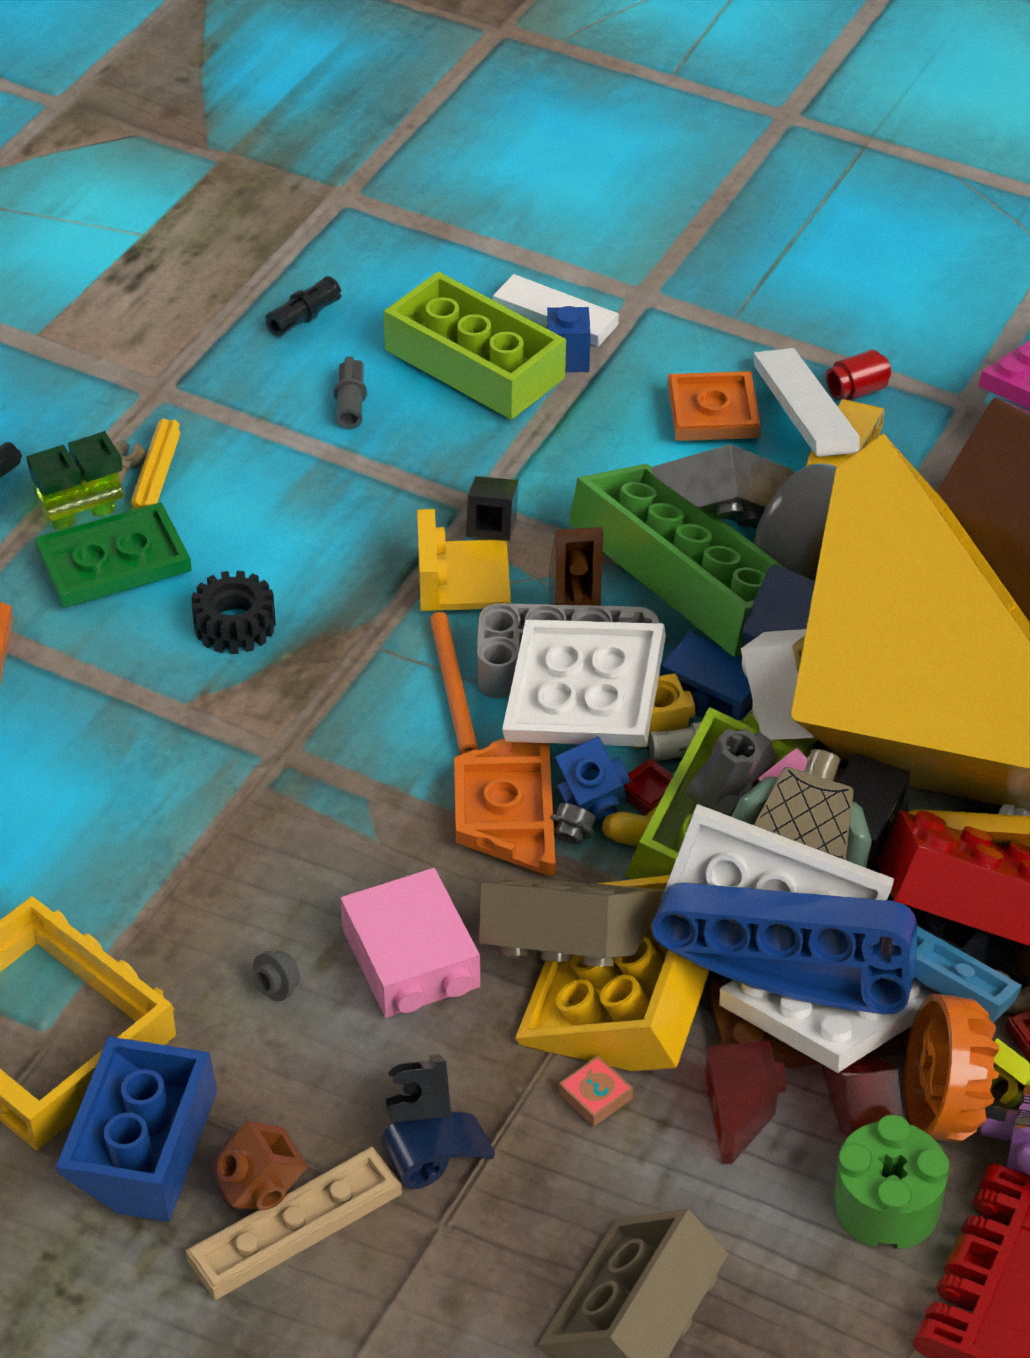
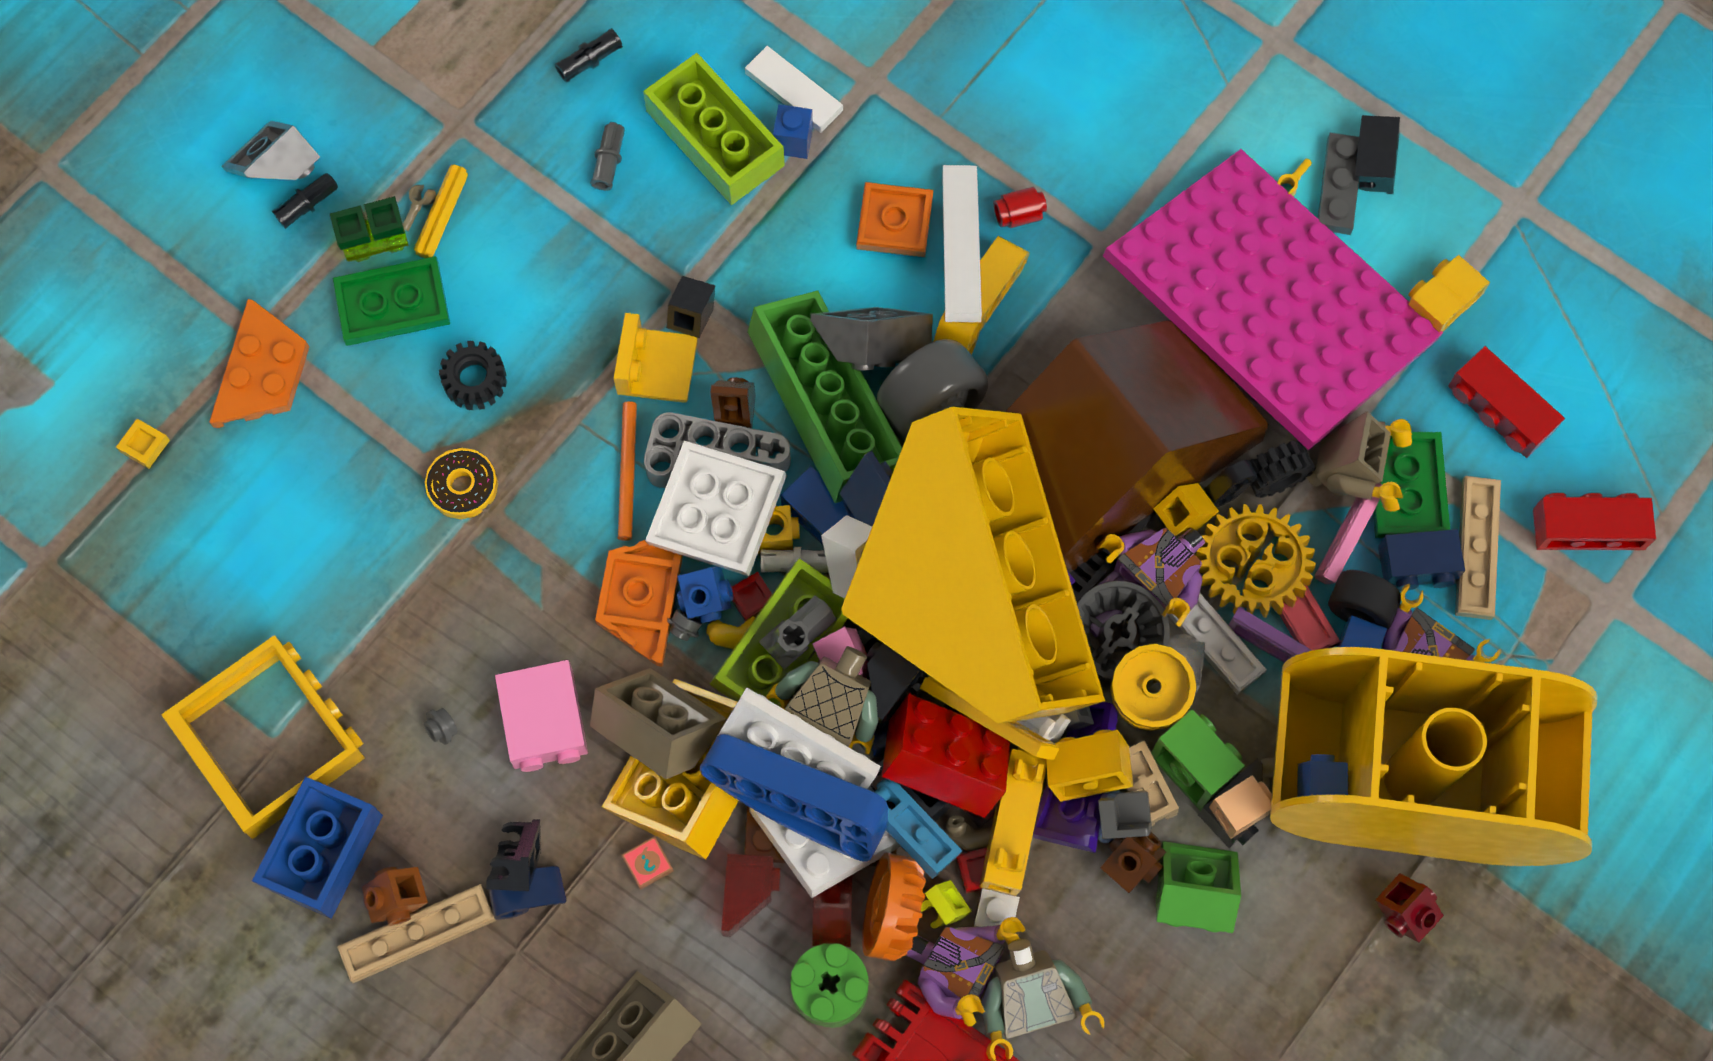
camera: 10 degrees right, 25 degrees up
(238, 703) = (456, 464): none -> tile

